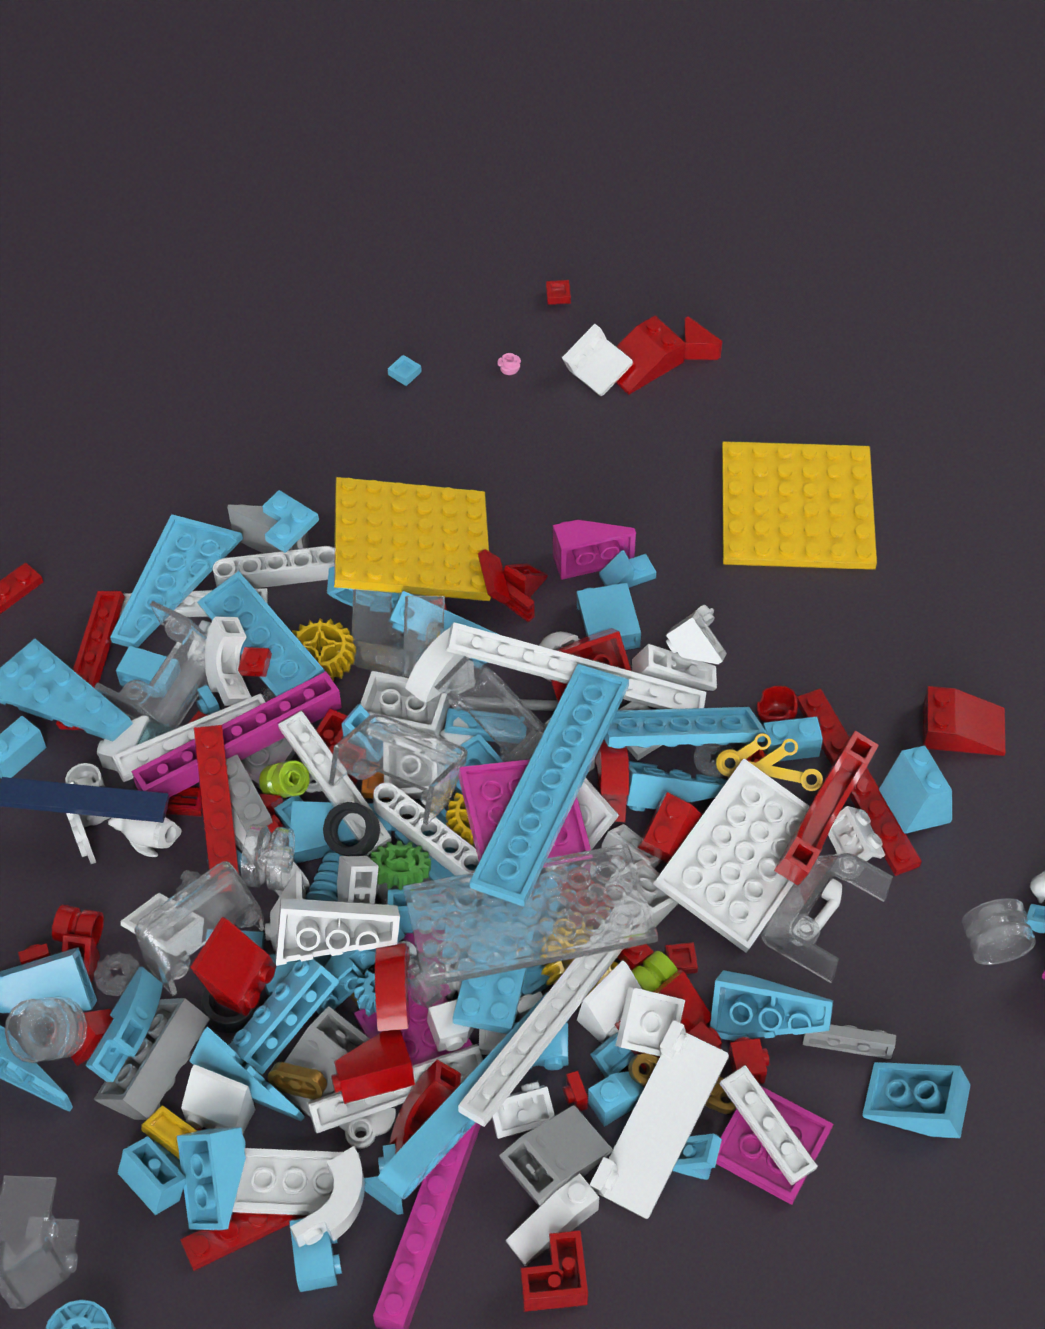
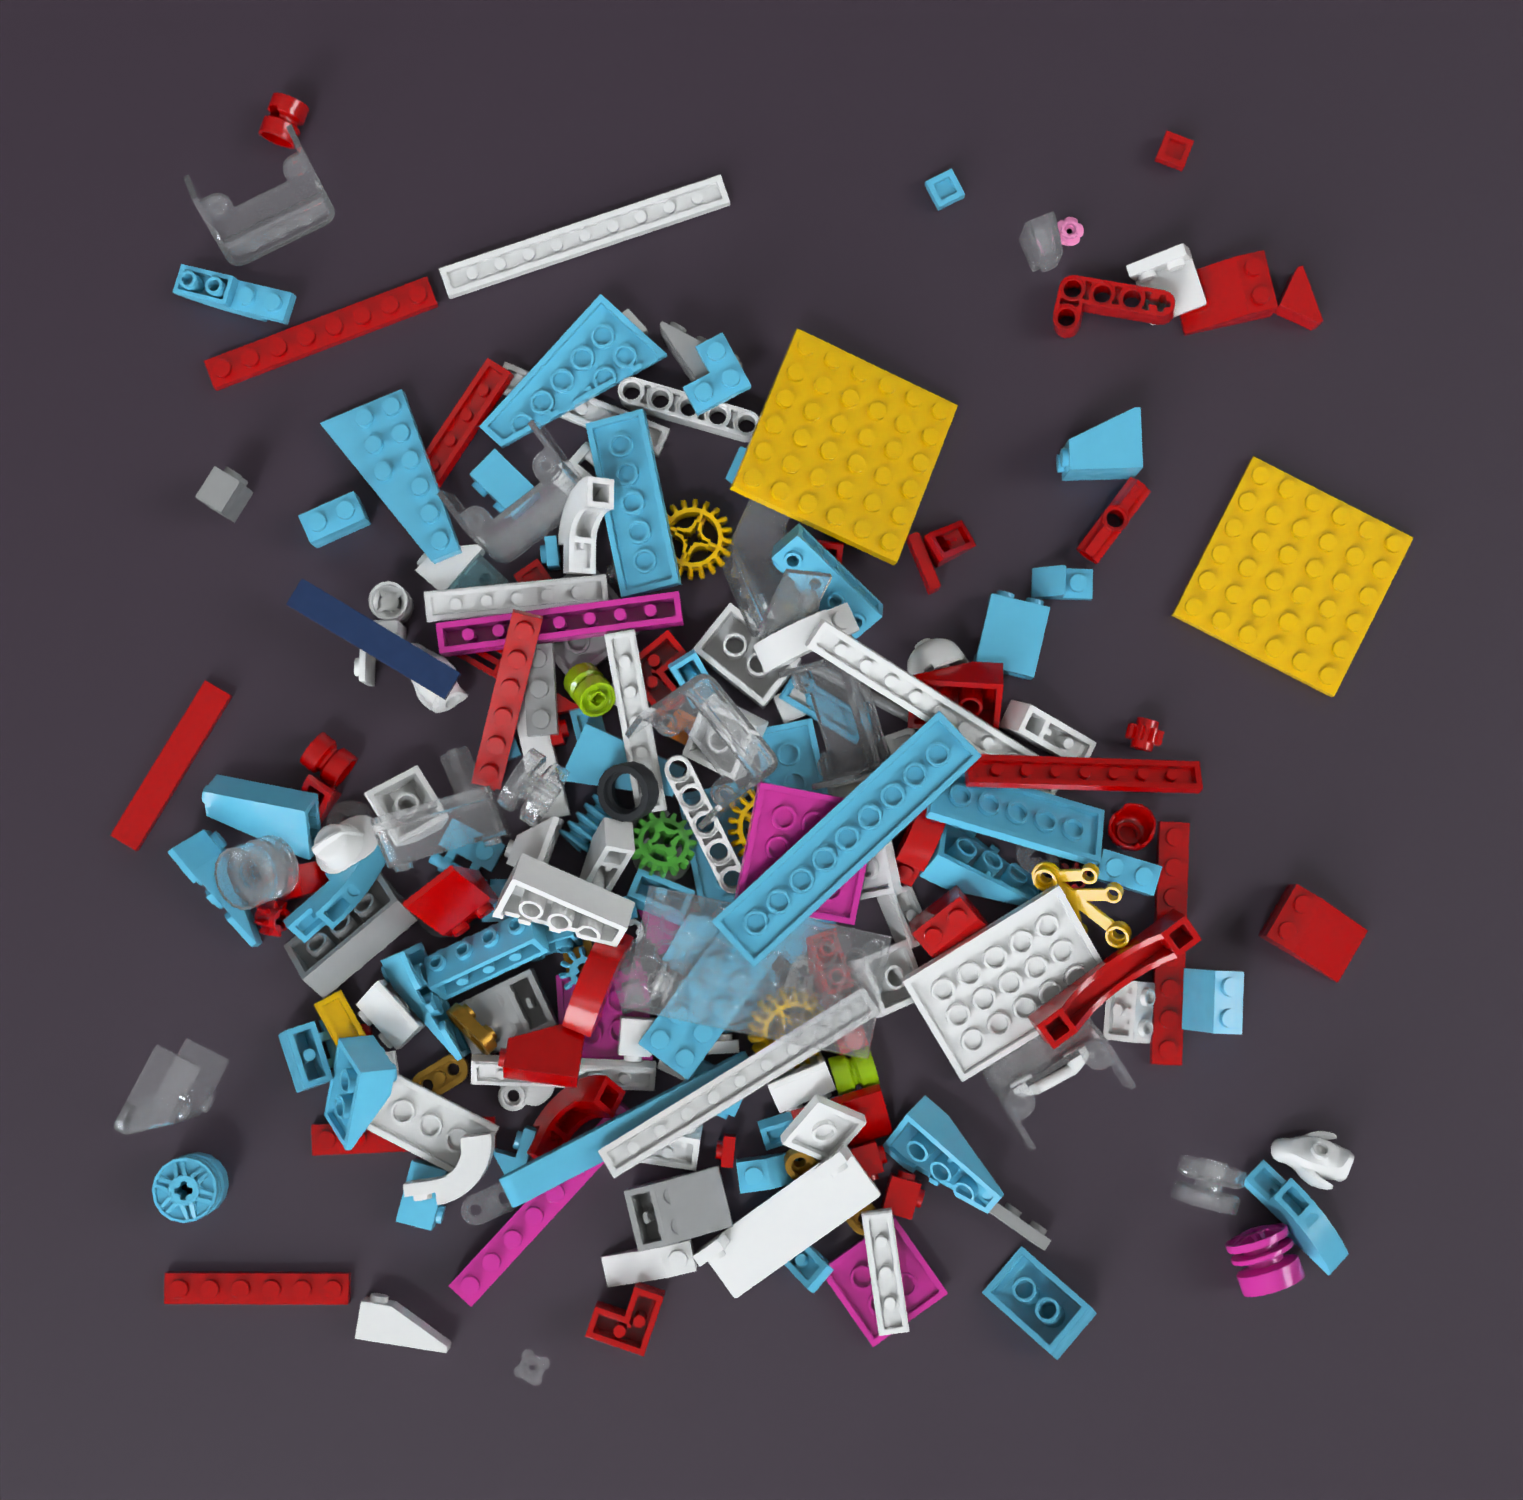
camera: 20 degrees right, 30 degrees up
(34, 953) = (277, 774): red plate -> none
(74, 1073) = (271, 918): none -> red gear
(117, 980) = (344, 844): none -> white piece
(139, 495) = (585, 236): none -> white plate
(254, 661) = (613, 537): red plate -> none
(281, 1138) = (440, 1074): none -> pearl gold plate
(382, 1236) = (489, 1202): none -> clear plate
(492, 369) = (1042, 242): none -> clear slope
(494, 576) = (909, 541): red tile -> none
(563, 385) = (1113, 307): none -> red beam
(589, 546) = (1028, 540): dark pink slope -> none
(610, 472) = (1104, 451): none -> medium azure slope
(644, 513) = (1124, 506): none -> red piece
(683, 957) = (894, 1057): red tile -> none
(695, 640) = (1085, 715): white slope -> none
(706, 614) = (1113, 678): white plate -> none
(717, 680) = (1085, 774): none -> red plate
(749, 641) = (1144, 734): none -> red gear

